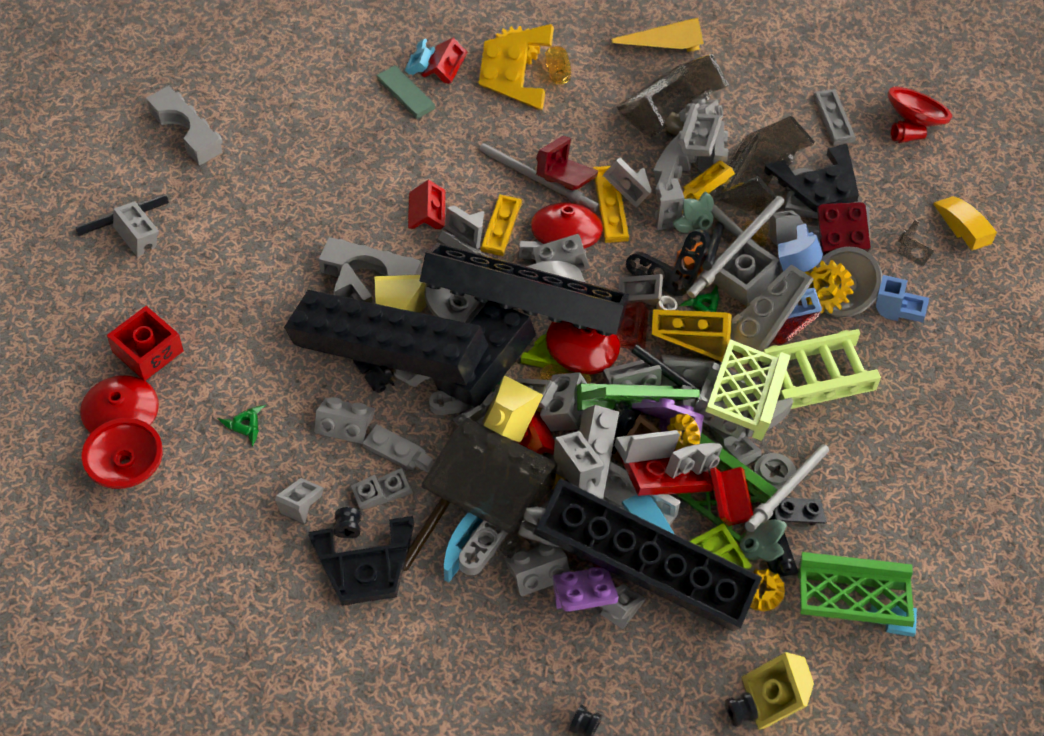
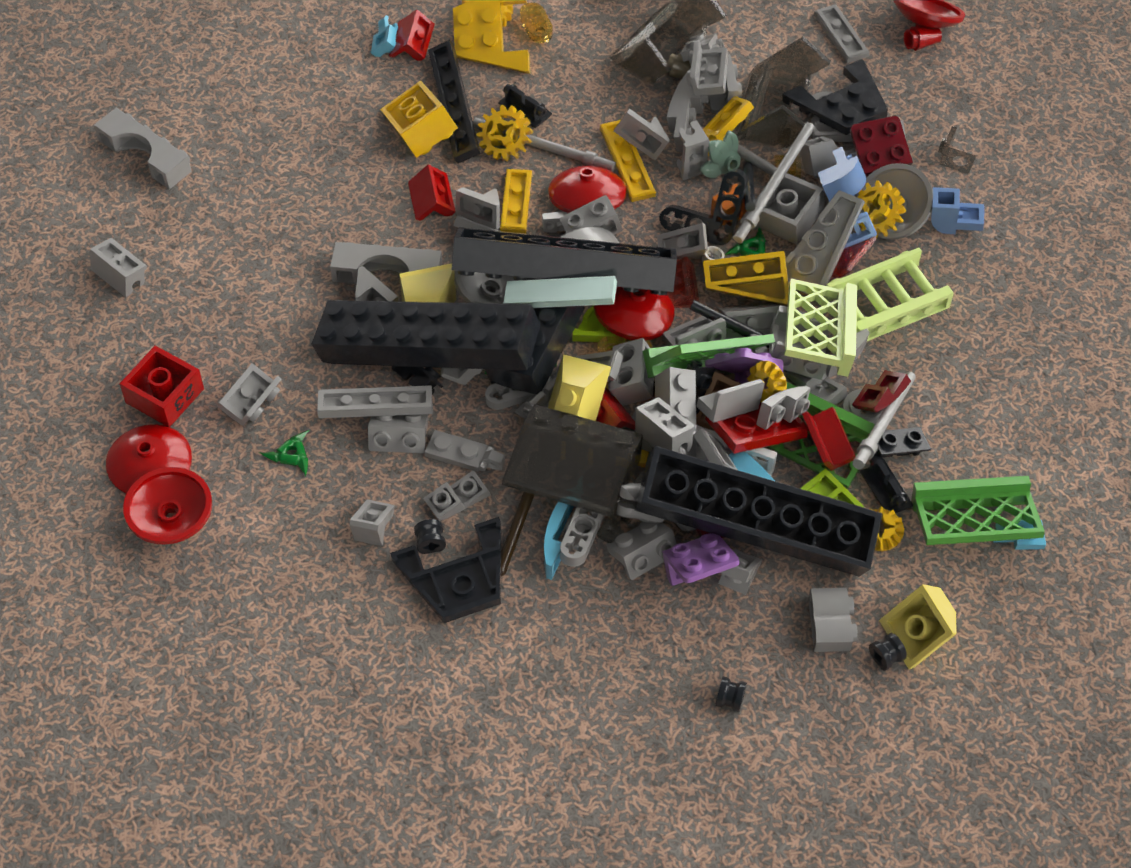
camera: 10 degrees left, 0 degrees up
(108, 220) = (83, 263): black bar -> none
(219, 363) = (248, 394): none -> light grey bracket
(328, 390) = (375, 401): none -> light grey fence
(406, 92) = (376, 75): sand green tile -> none
(431, 137) = (419, 119): none -> yellow slope
(466, 126) = (454, 99): none -> black plate
(496, 156) = (495, 136): none -> yellow gear
(513, 318) = (562, 292): none -> light aqua tile
(526, 137) = (531, 108): none -> black hinge
(557, 168) = (562, 132): dark red bracket -> none
(620, 491) = (713, 449): none -> light grey tile
(695, 668) = (831, 619): none -> light grey brick
(764, 540) = (873, 477): sand green plate -> none
(795, 460) = (883, 393): none -> dark red slope
(966, 222) = (1003, 121): yellow slope -> none

